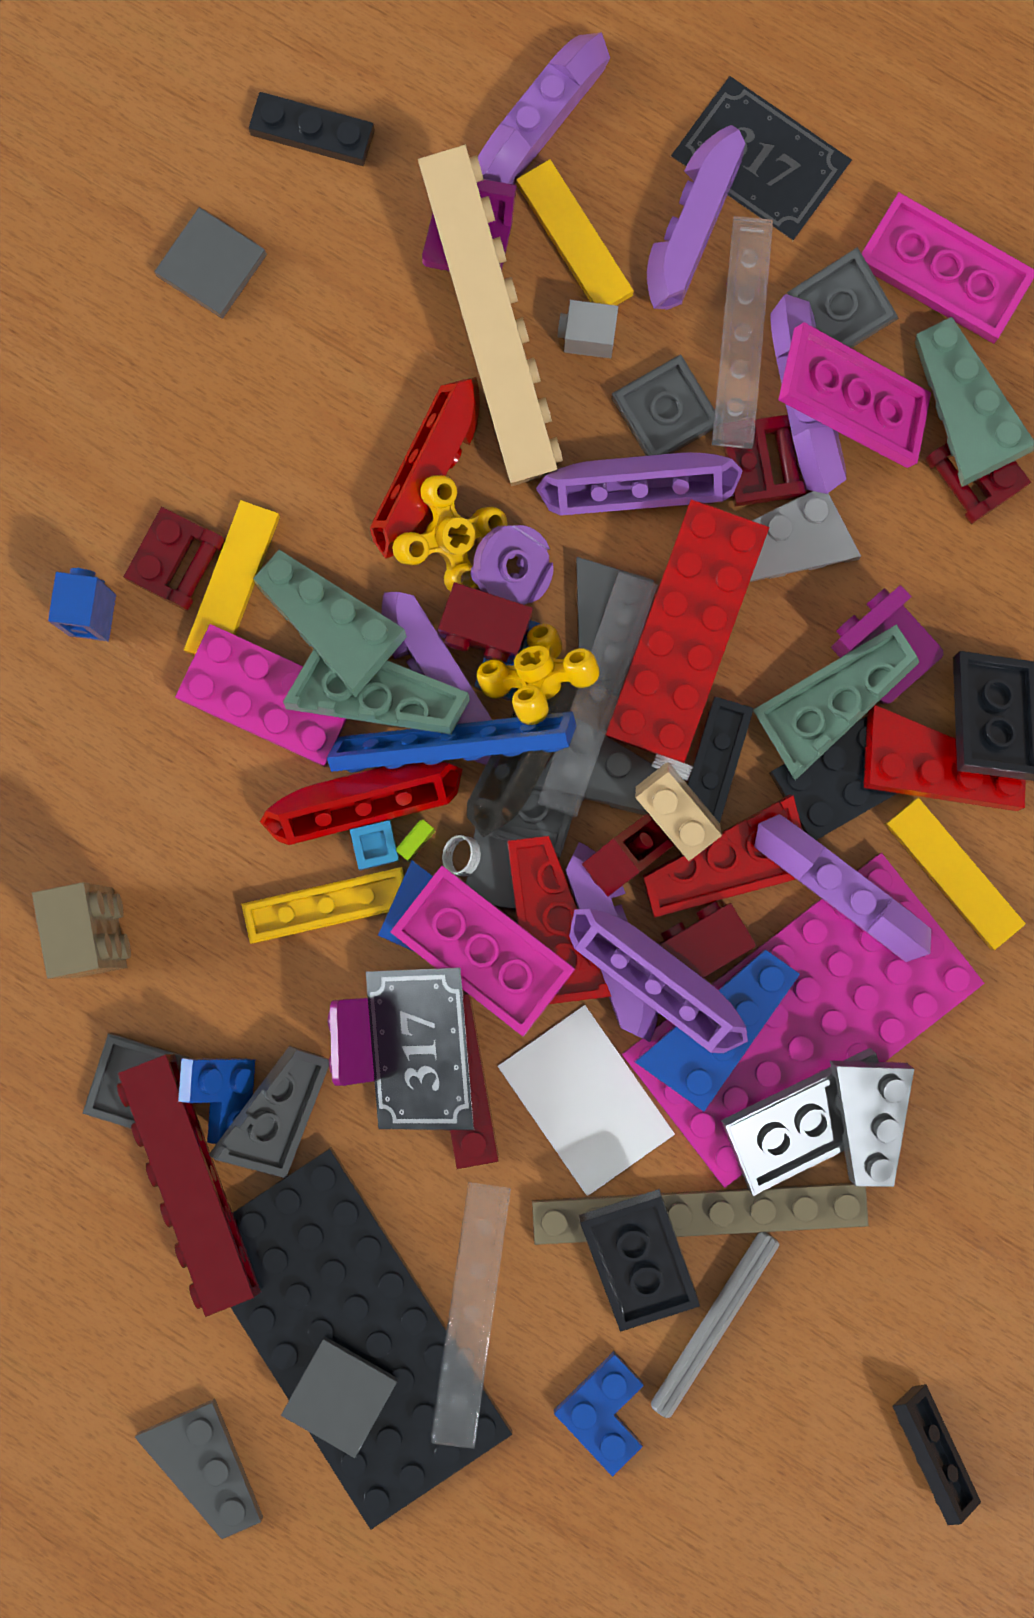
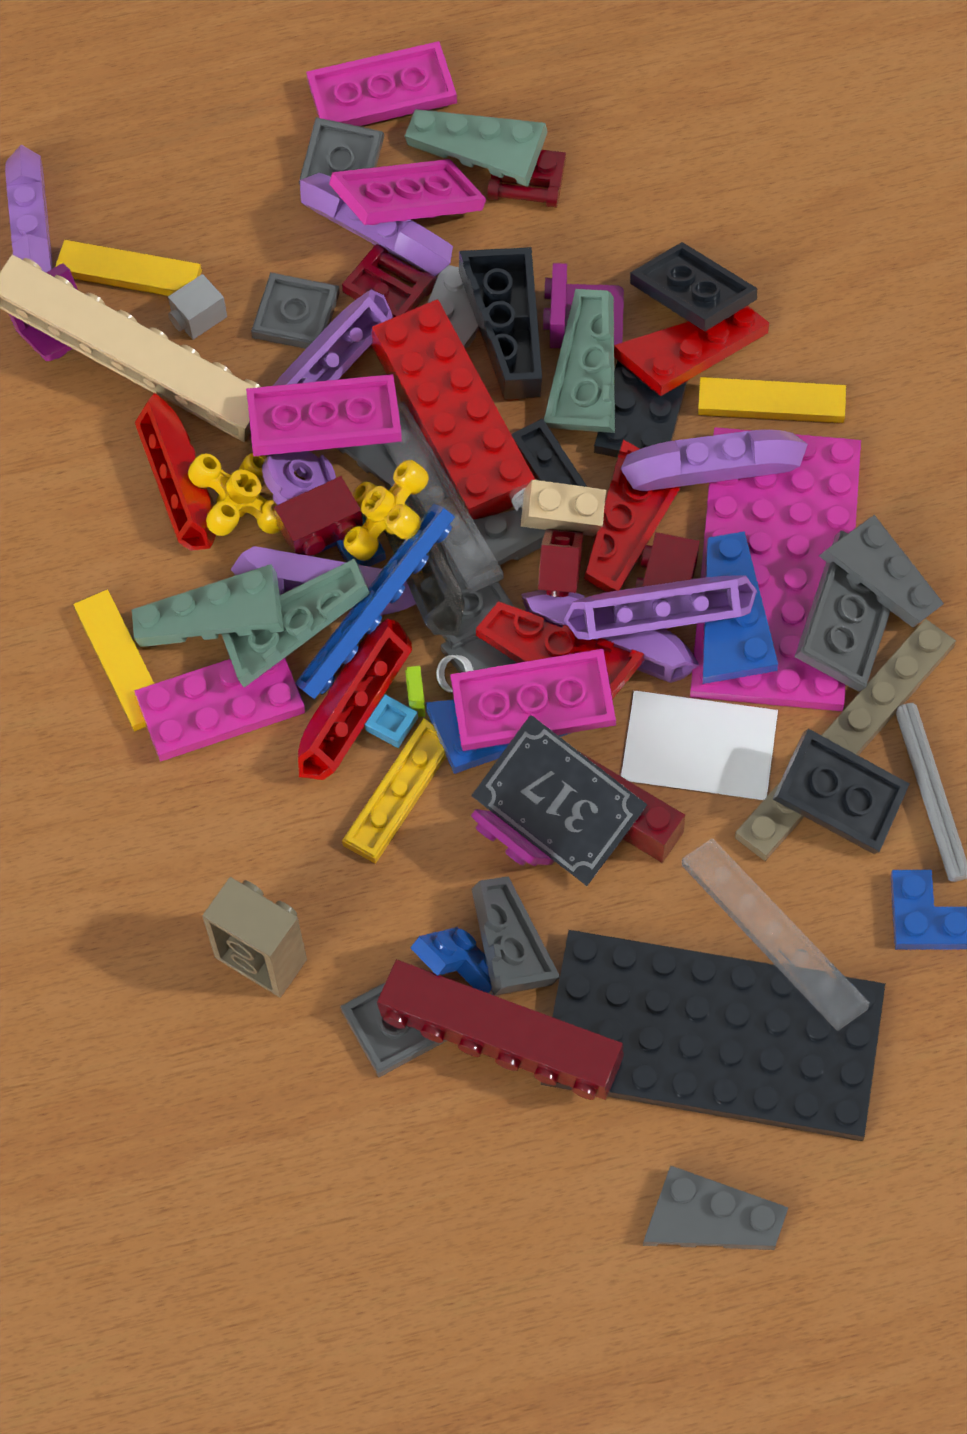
camera: 45 degrees left, 20 degrees down
(82, 605) = (37, 752): blue brick -> none
(163, 553) = (53, 685): dark red plate -> none
(339, 1397) = (748, 1065): dark grey tile -> none
(575, 538) = (323, 415): none -> dark pink plate
(676, 260) = (206, 216): medium lavender brick -> none
(742, 332) = (297, 226): clear tile -> none
(782, 165) = (198, 130): black sticker -> none
(823, 584) = (506, 312): none -> black wedge

